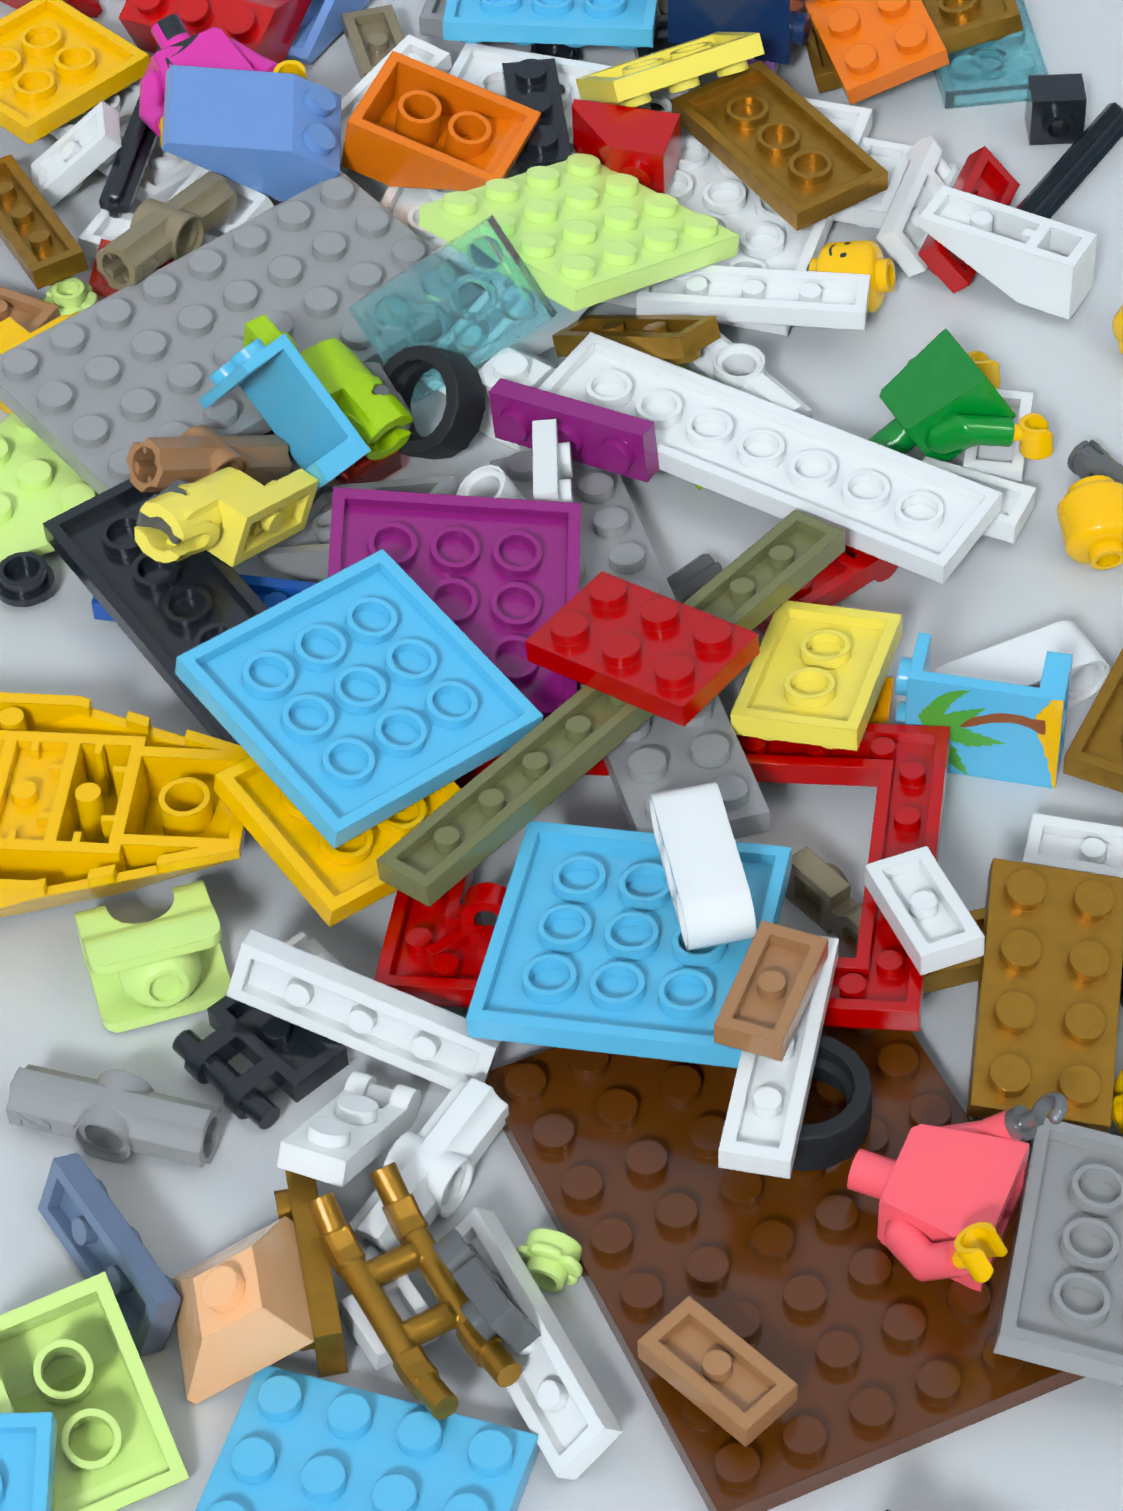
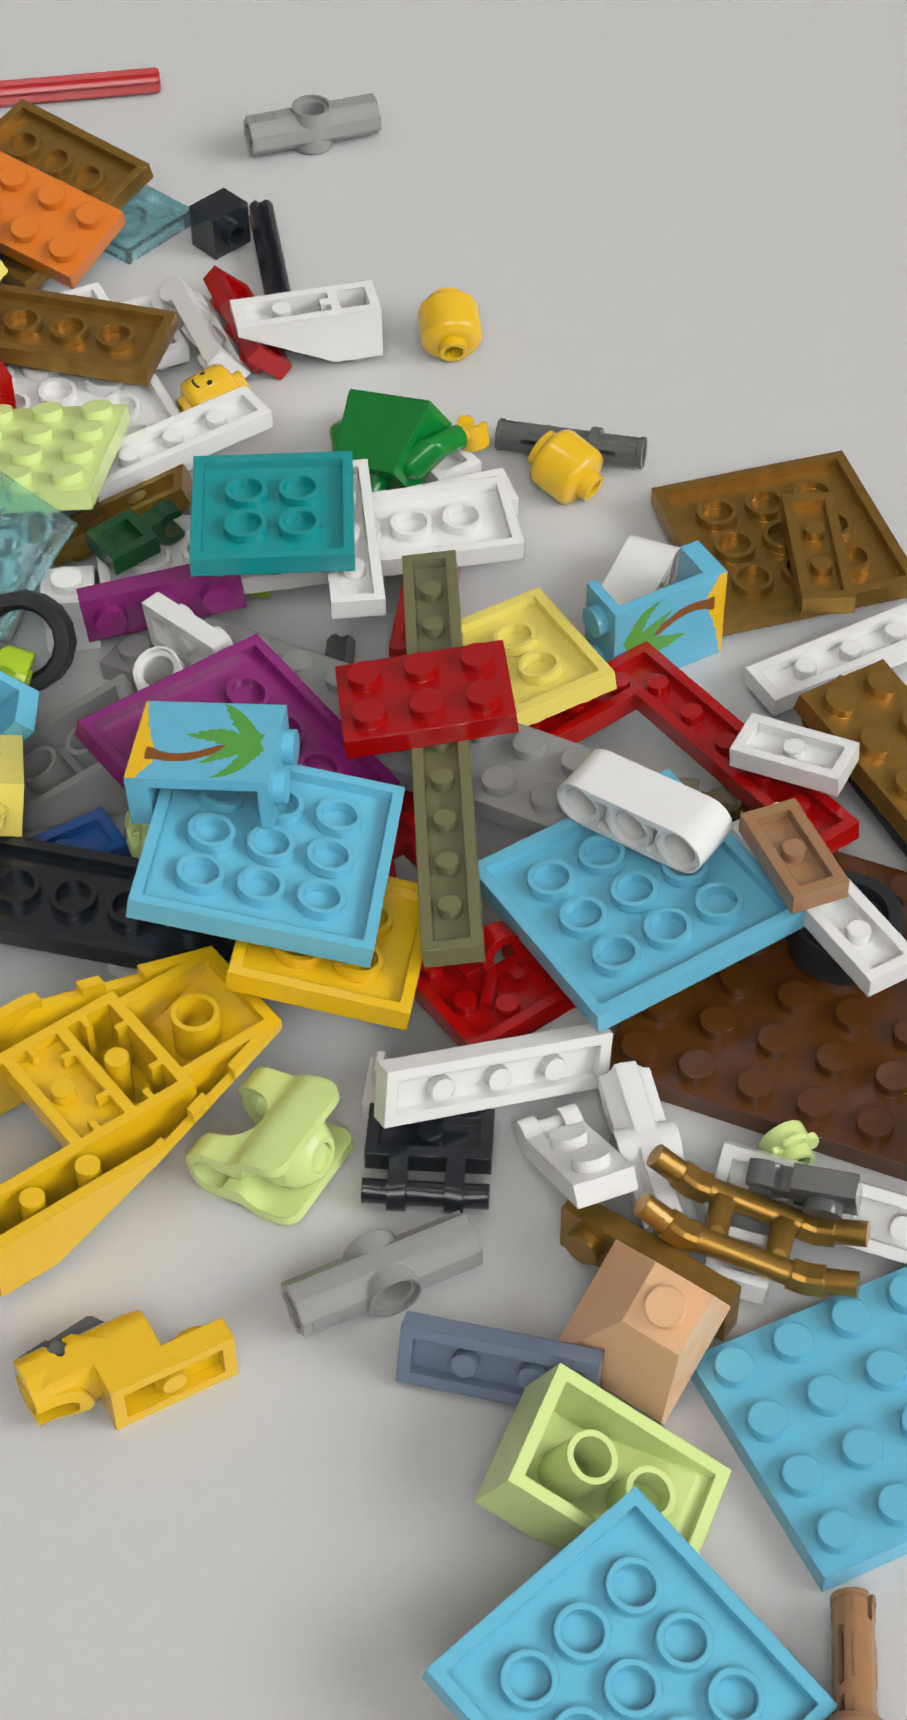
camera: 45 degrees left, 0 degrees up
(382, 579) = (211, 750): none -> medium azure panel
(593, 356) = (133, 538): none -> dark green plate
(712, 402) = (272, 514): none -> teal plate
(776, 468) = (360, 591): none -> white plate

